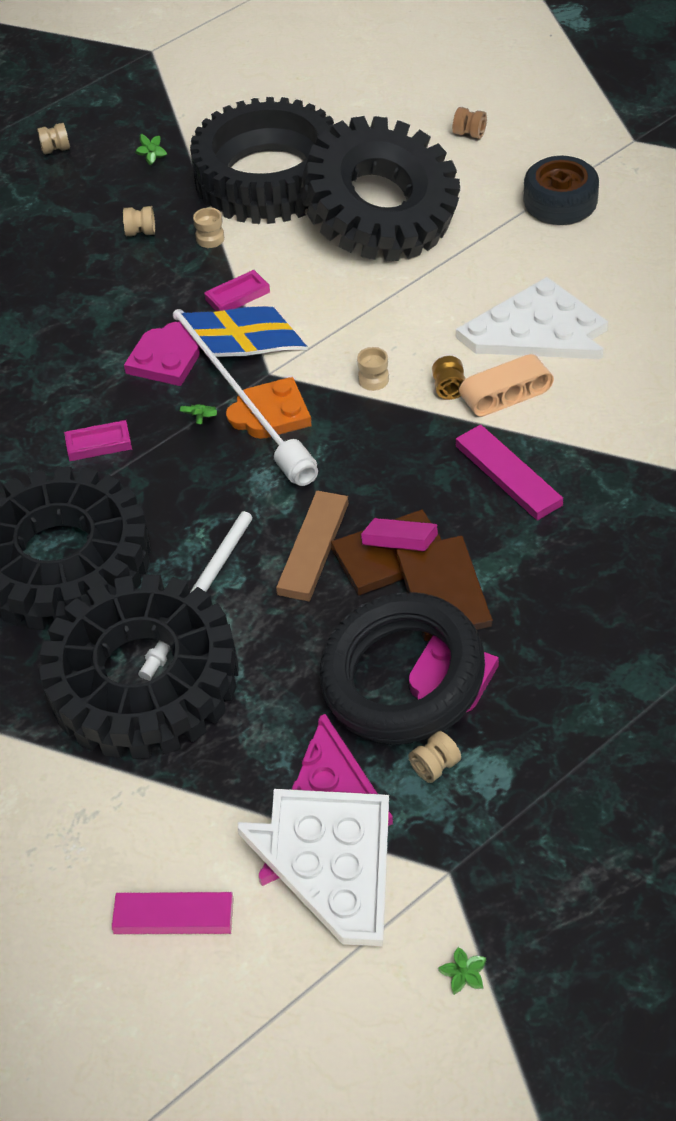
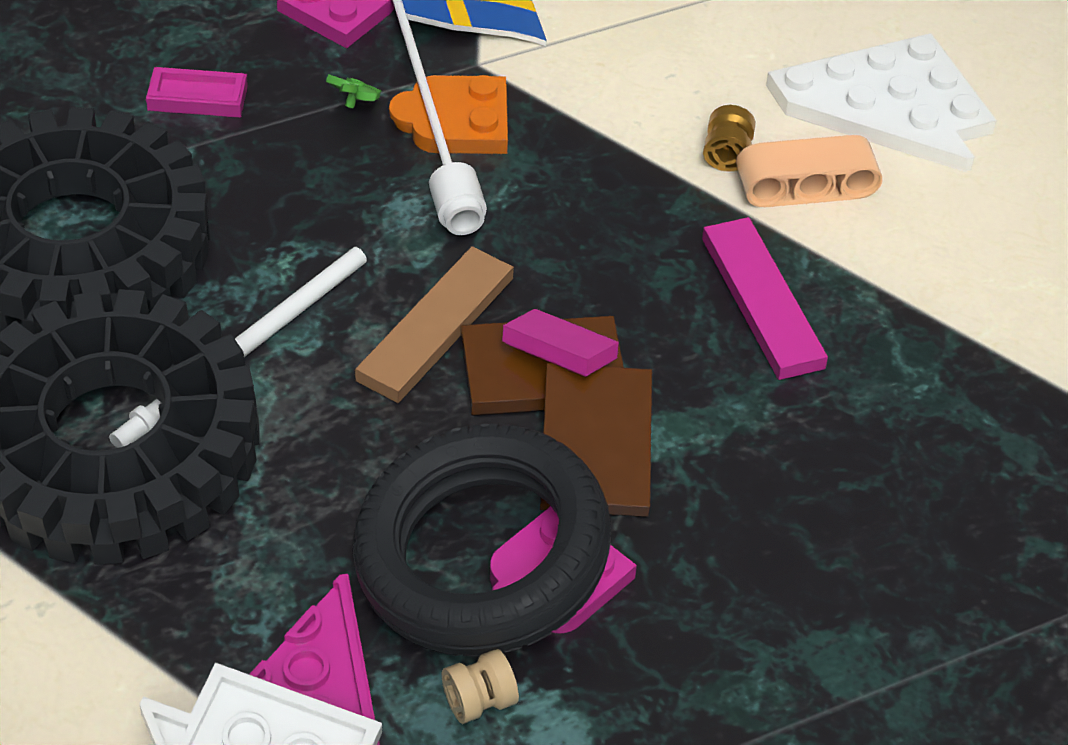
camera: 10 degrees right, 0 degrees up
(373, 368) = (624, 95): tan wheel -> none

